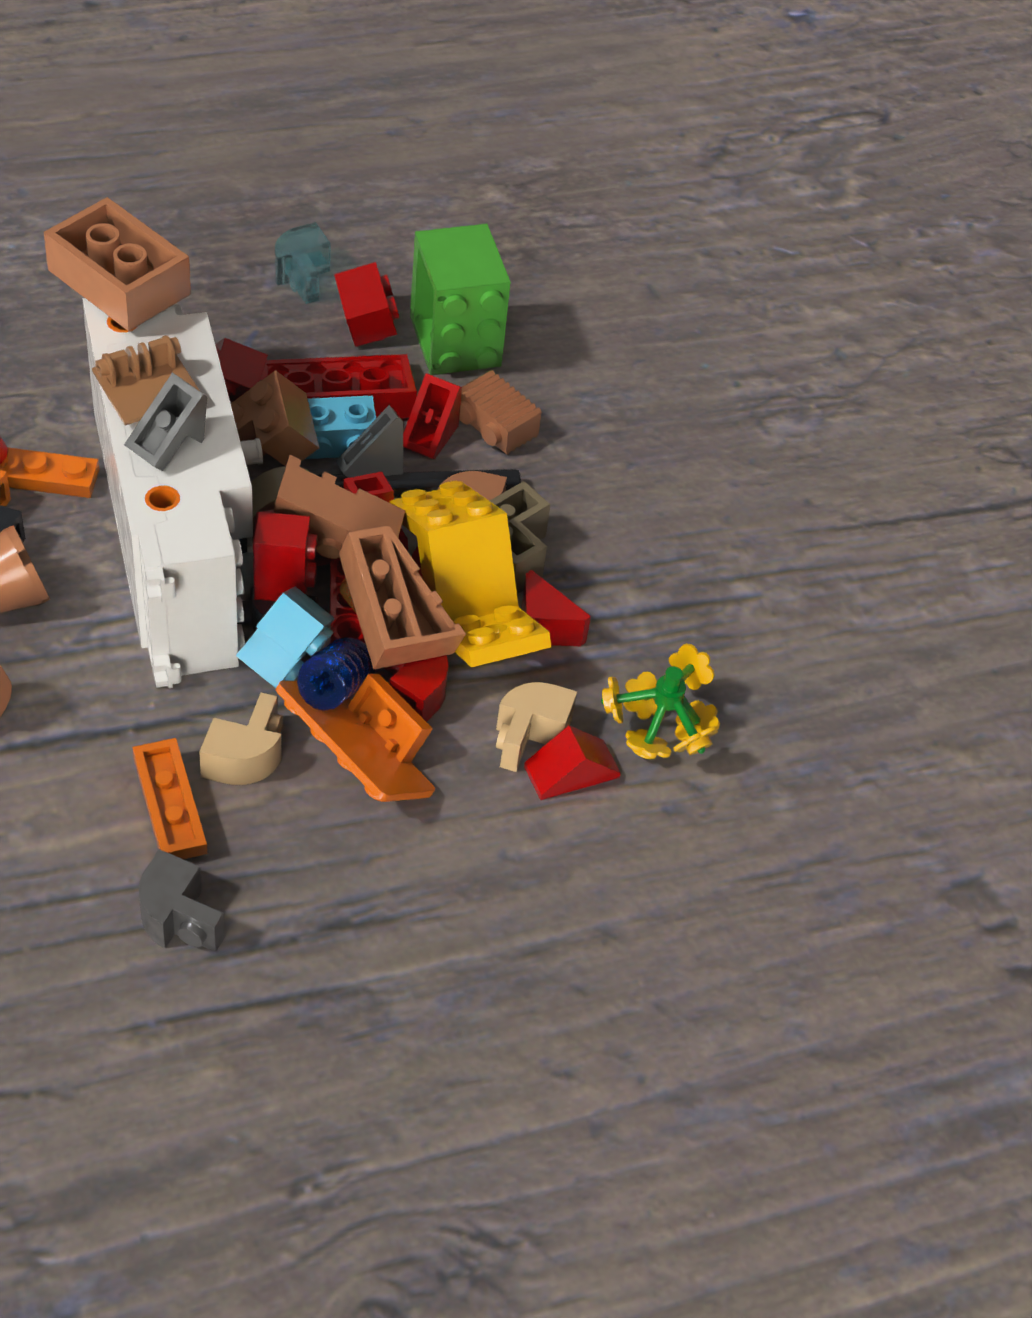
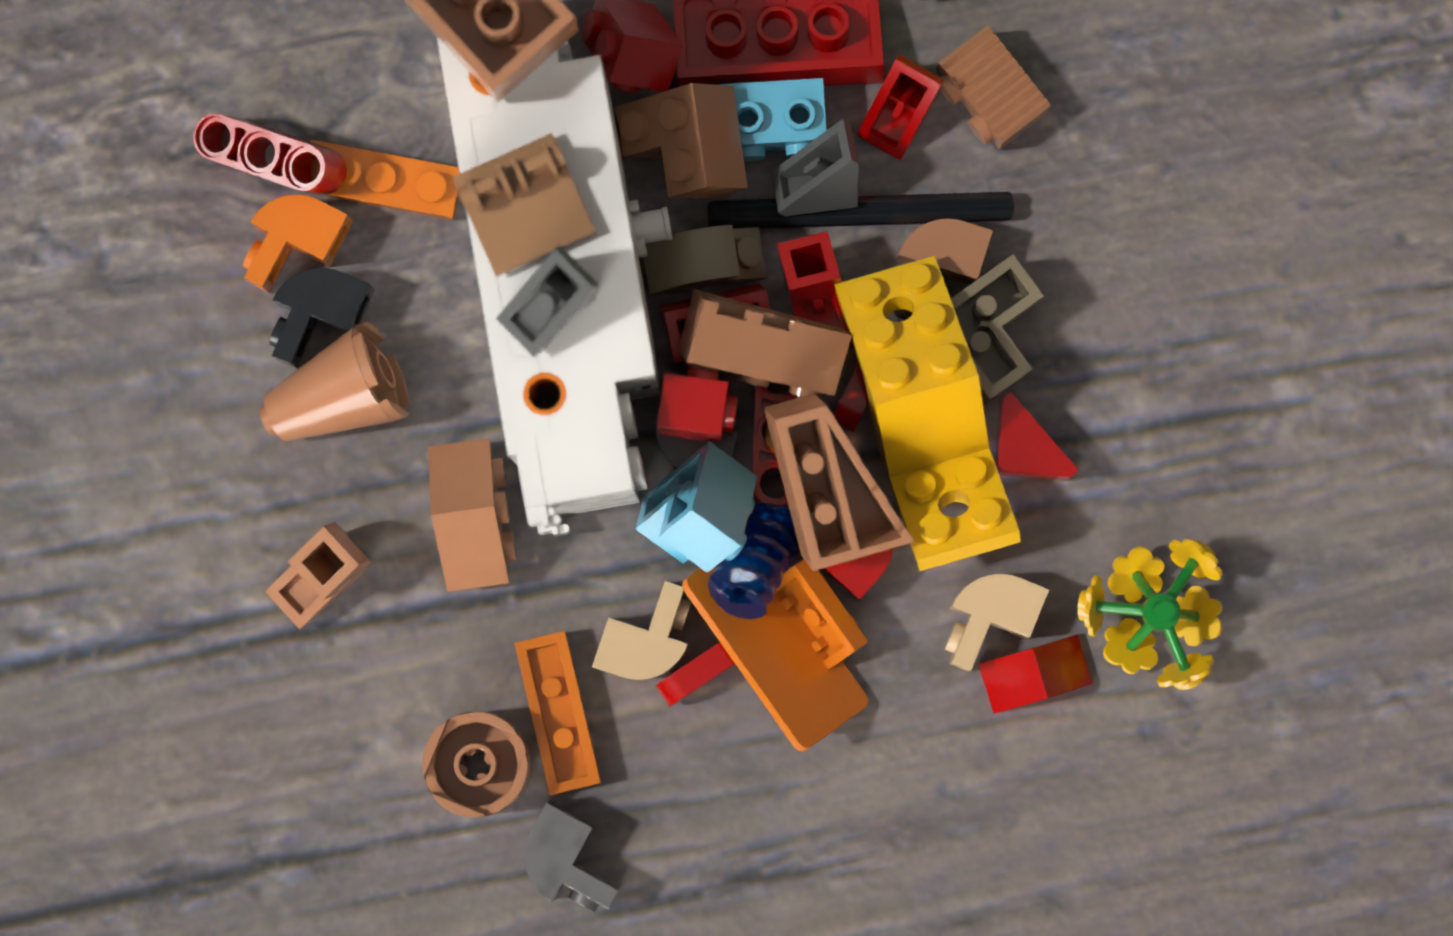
camera: 15 degrees right, 35 degrees up
(97, 660) = (470, 514): none -> nougat brick
(97, 829) = (449, 776): none -> nougat brick
(292, 765) = (694, 674): none -> red beam

